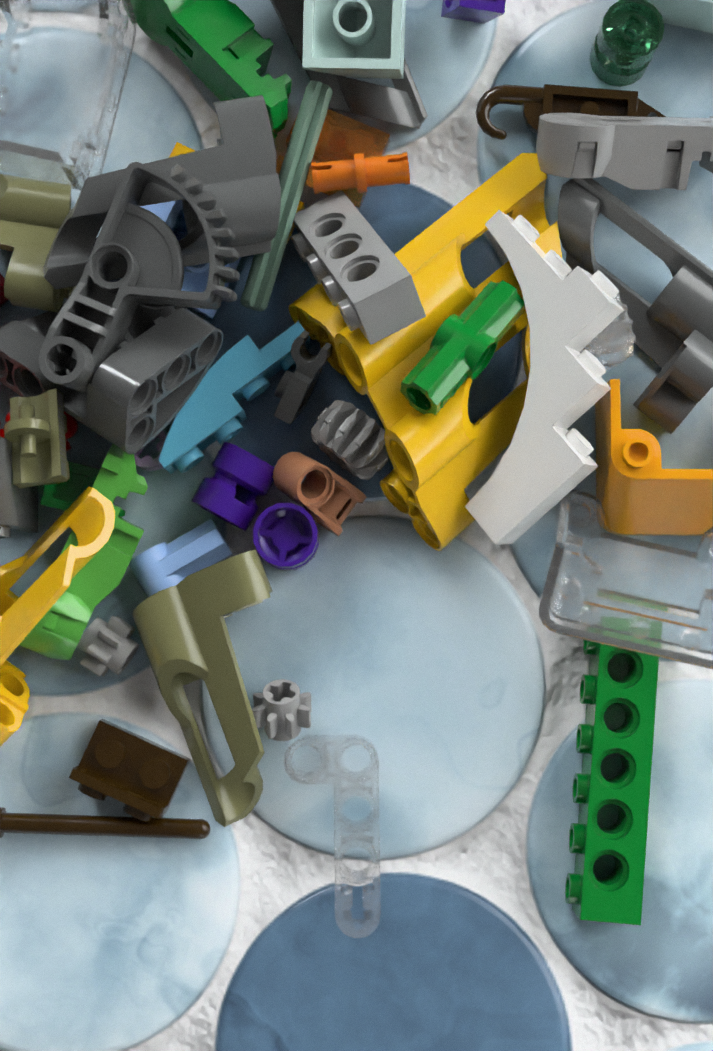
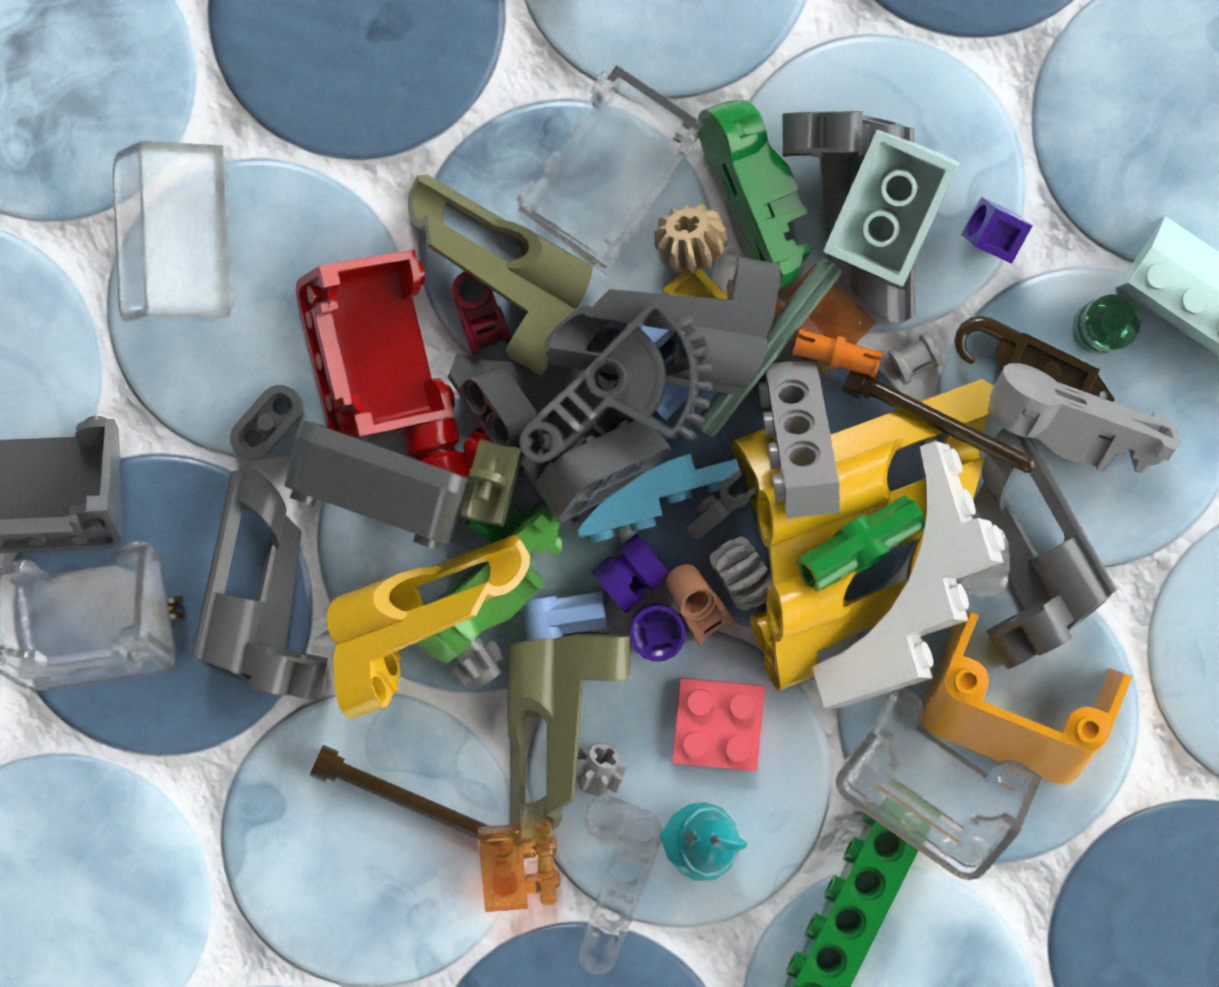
camera: 25 degrees right, 5 degrees up
(130, 771) = (457, 769): dark brown bracket -> none
(163, 117) = (690, 238): none -> tan gear
(219, 858) = (504, 867): none -> clear orange plate
(392, 612) = (718, 724): none -> coral plate
(404, 199) = (863, 385): none -> dark brown piece
(422, 744) = (702, 841): none -> teal piece
(444, 154) = (915, 358): none -> light grey bush

